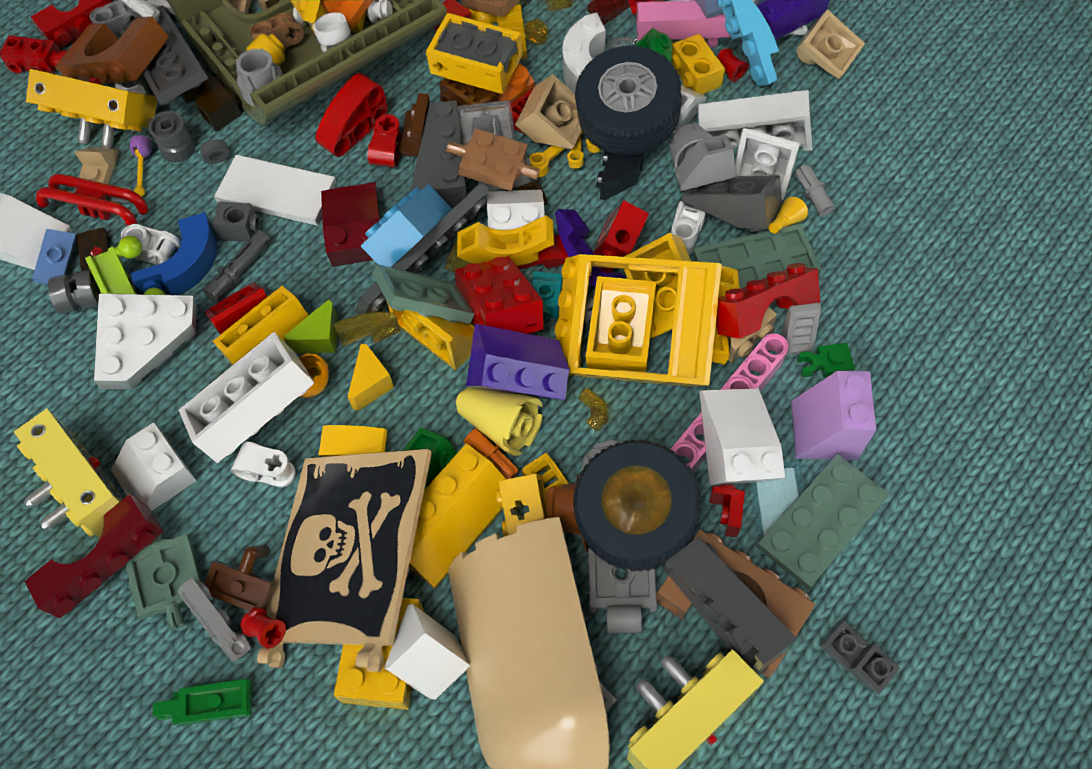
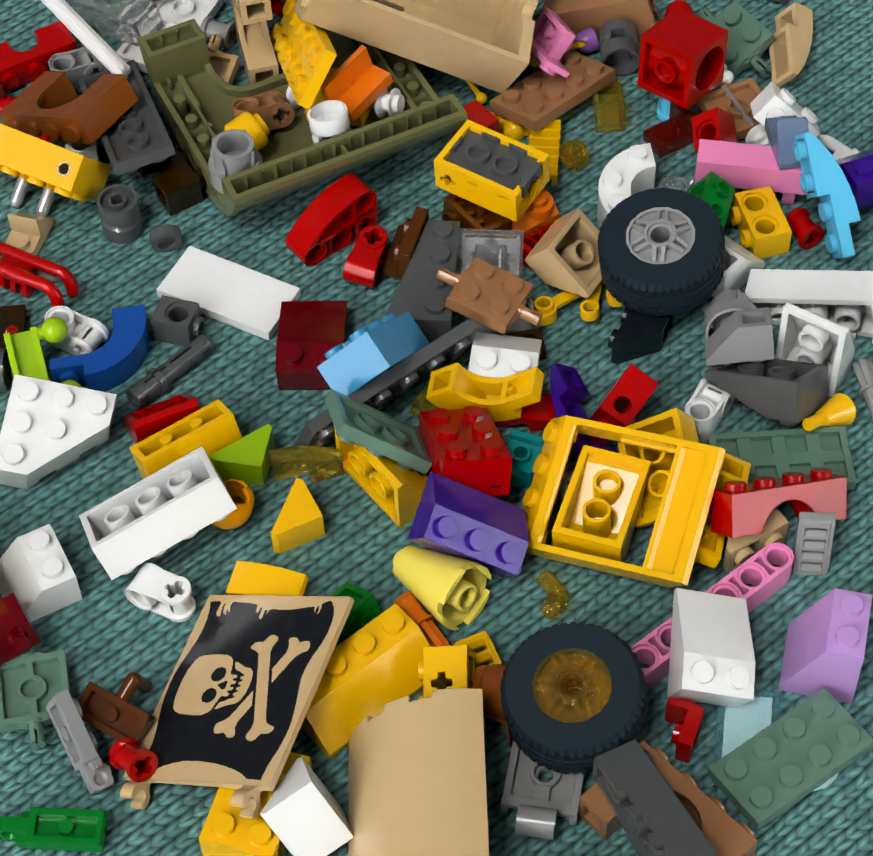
camera: 10 degrees right, 10 degrees down
(140, 148) = (80, 221): hinge -> none
(827, 360) = (846, 579): green plate -> none

